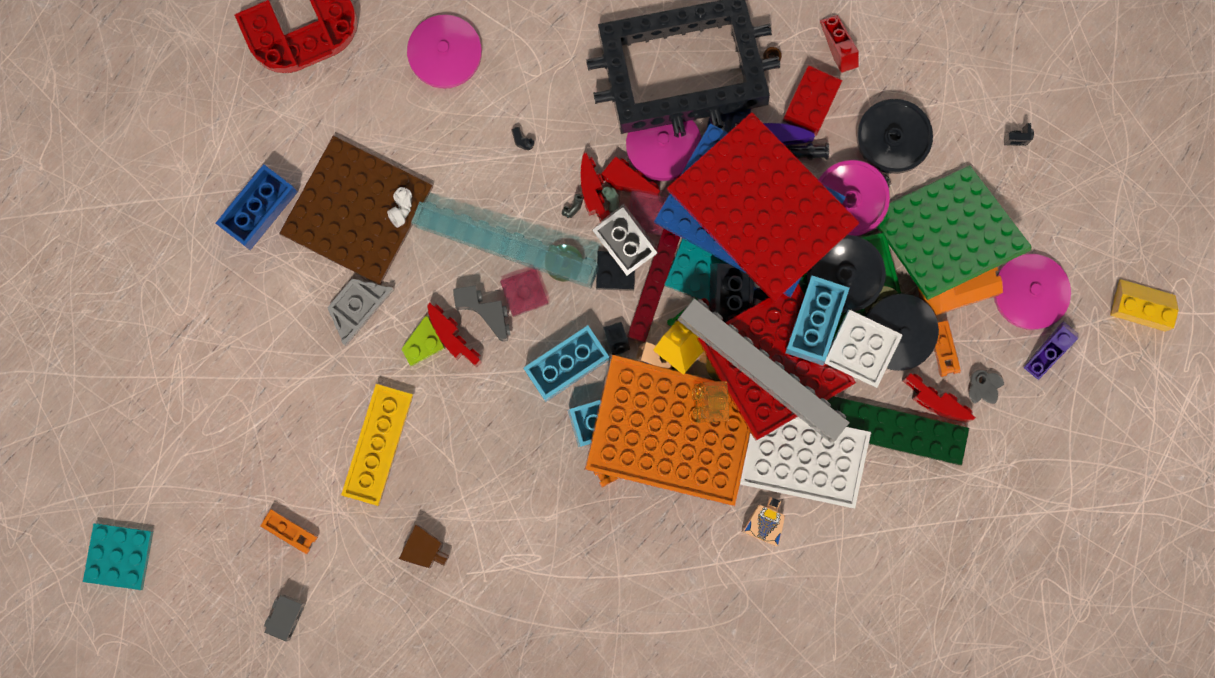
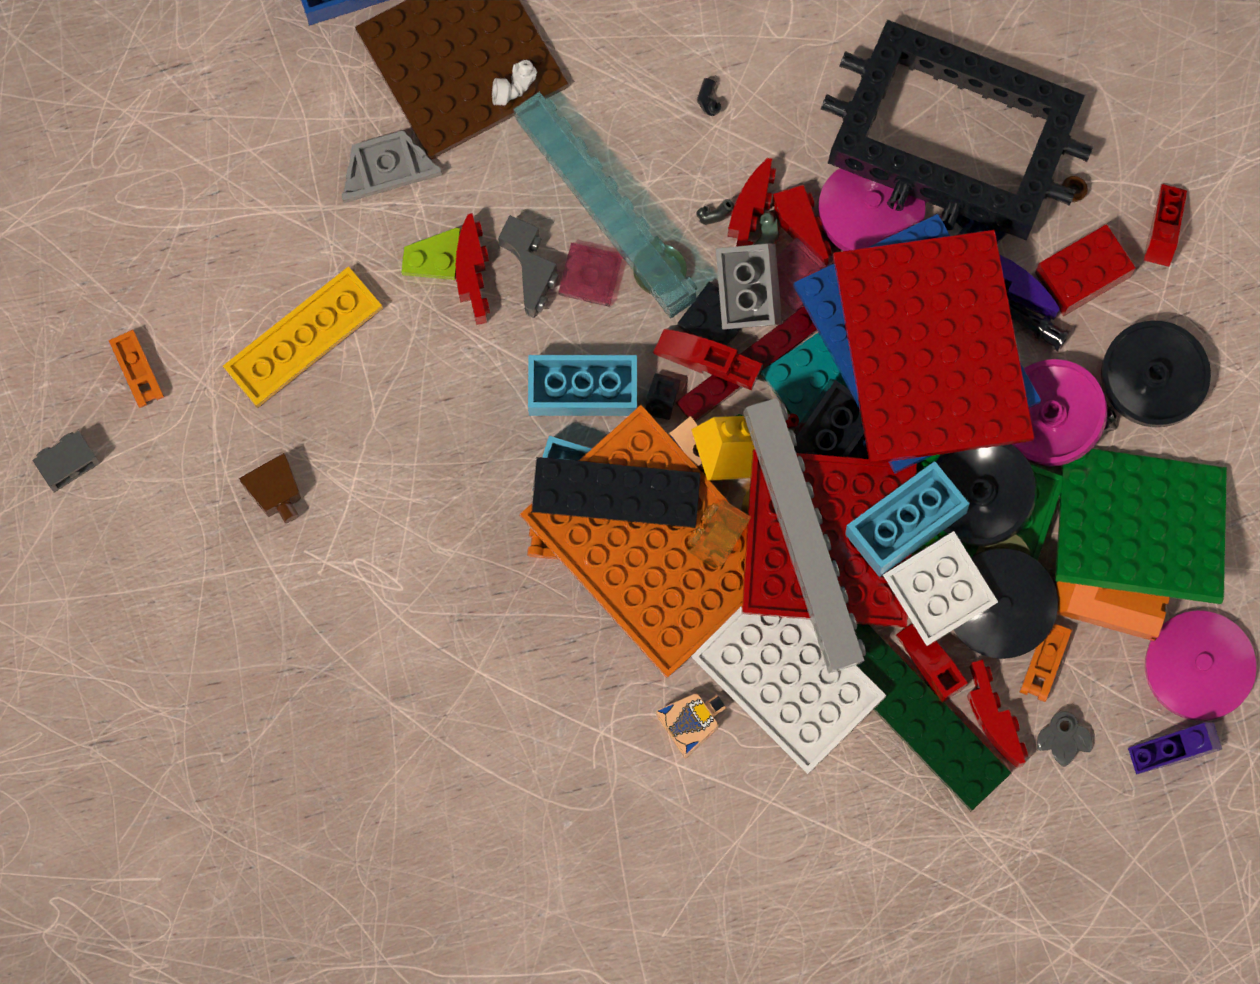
camera: 35 degrees right, 5 degrees down
(629, 297) = (708, 356): none -> red slope
(633, 418) = (615, 492): none -> black plate
(884, 394) = (933, 664): none -> red slope

